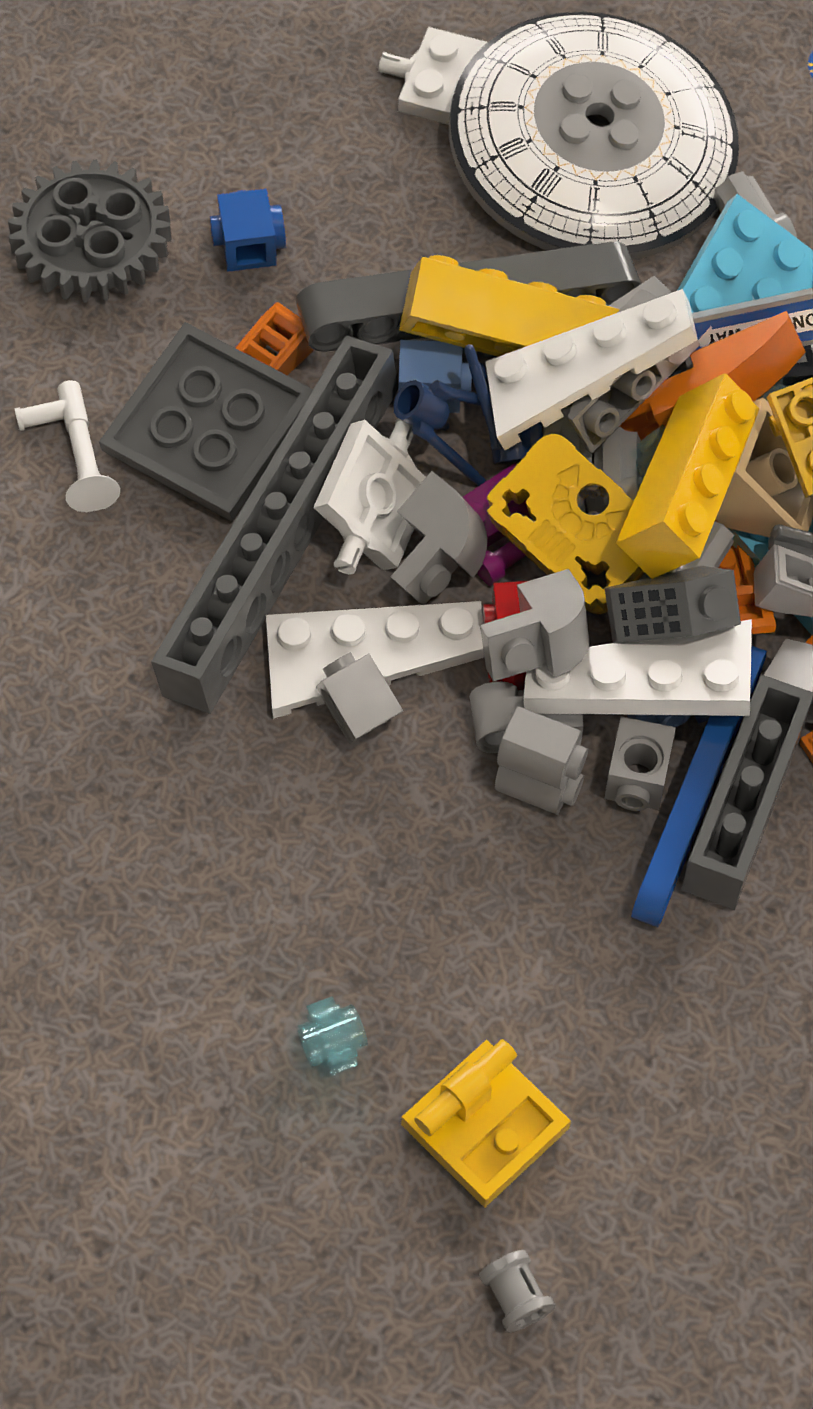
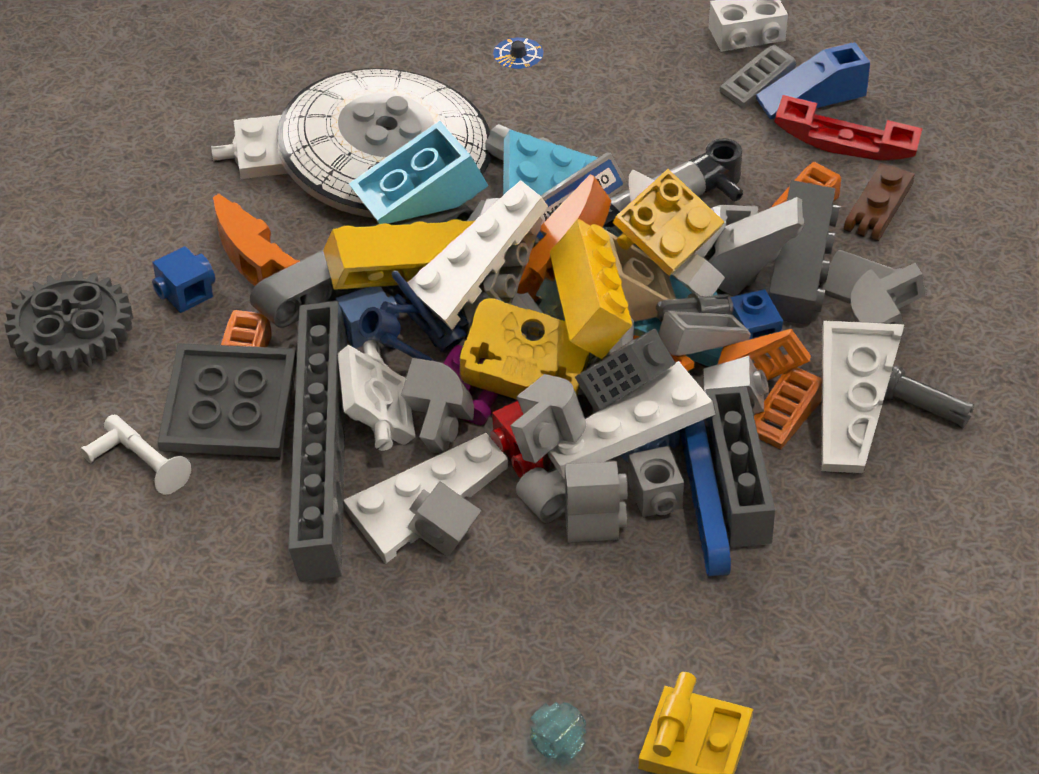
camera: 25 degrees left, 15 degrees down
(351, 213) = (248, 242): none -> orange slope
(588, 217) = (420, 178): none -> medium azure slope

